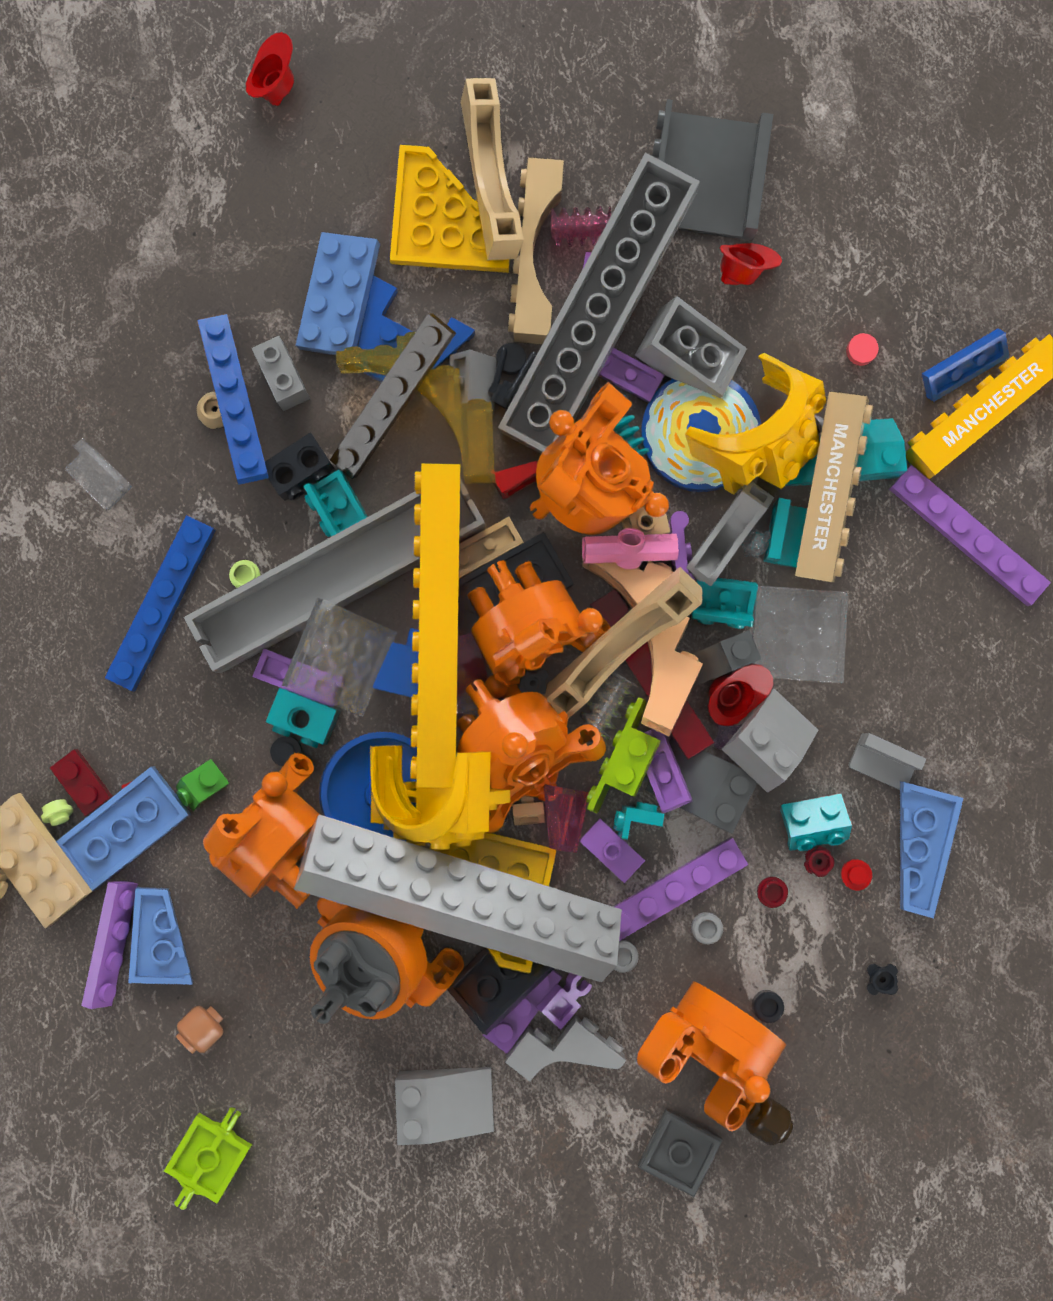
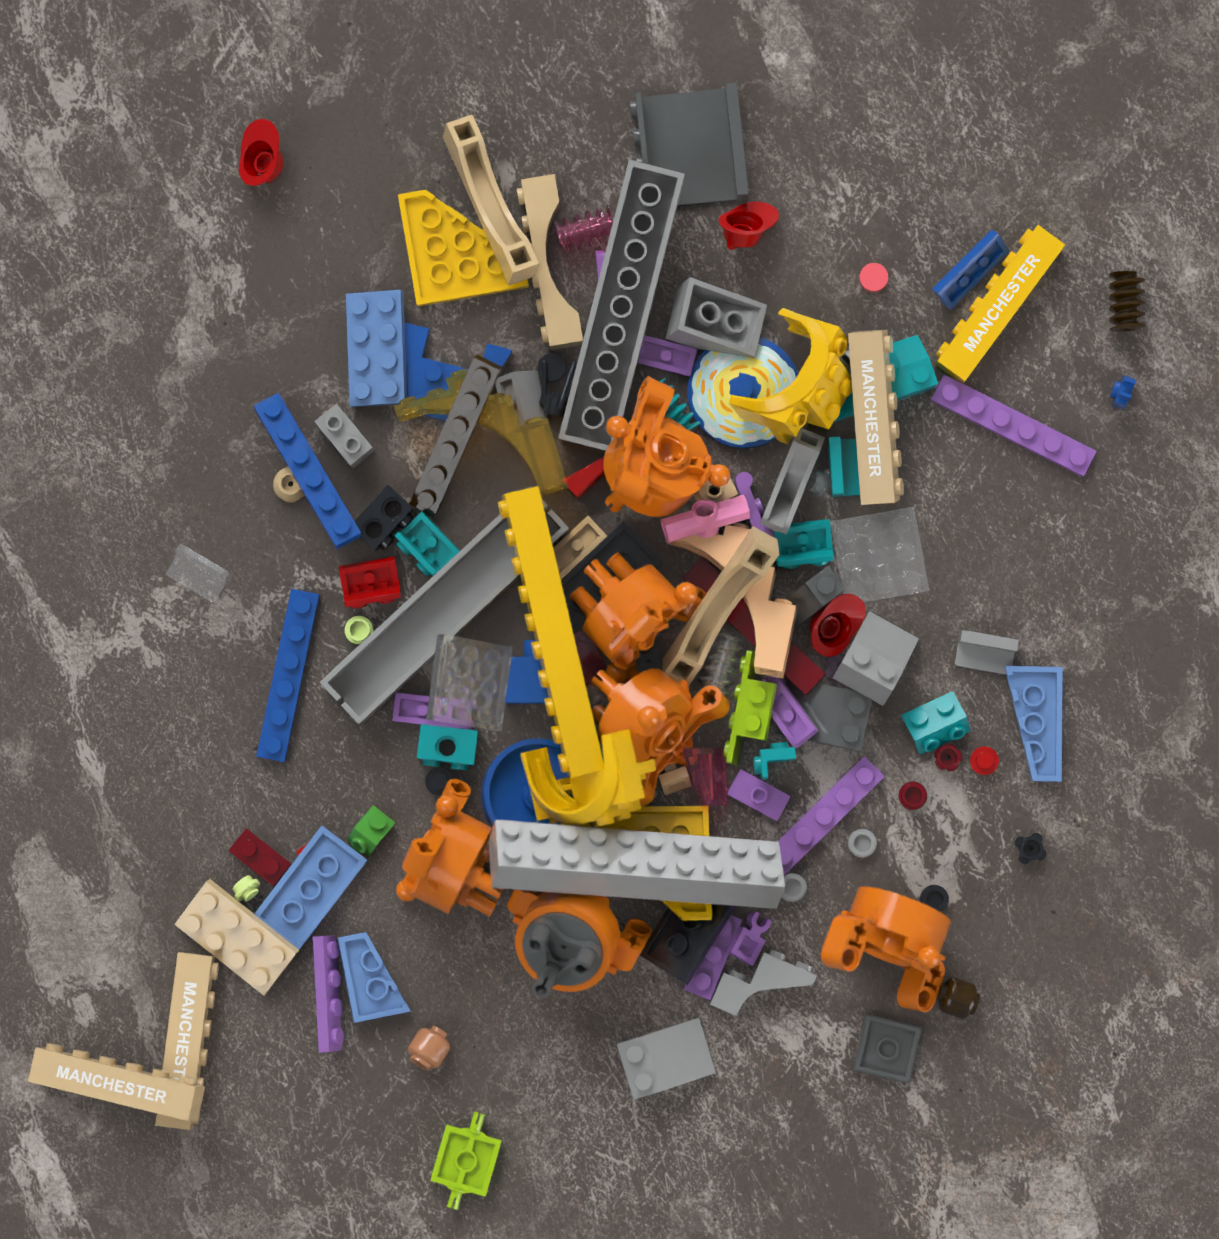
camera: 15 degrees left, 0 degrees up
(267, 528) = (370, 582): none -> red bracket

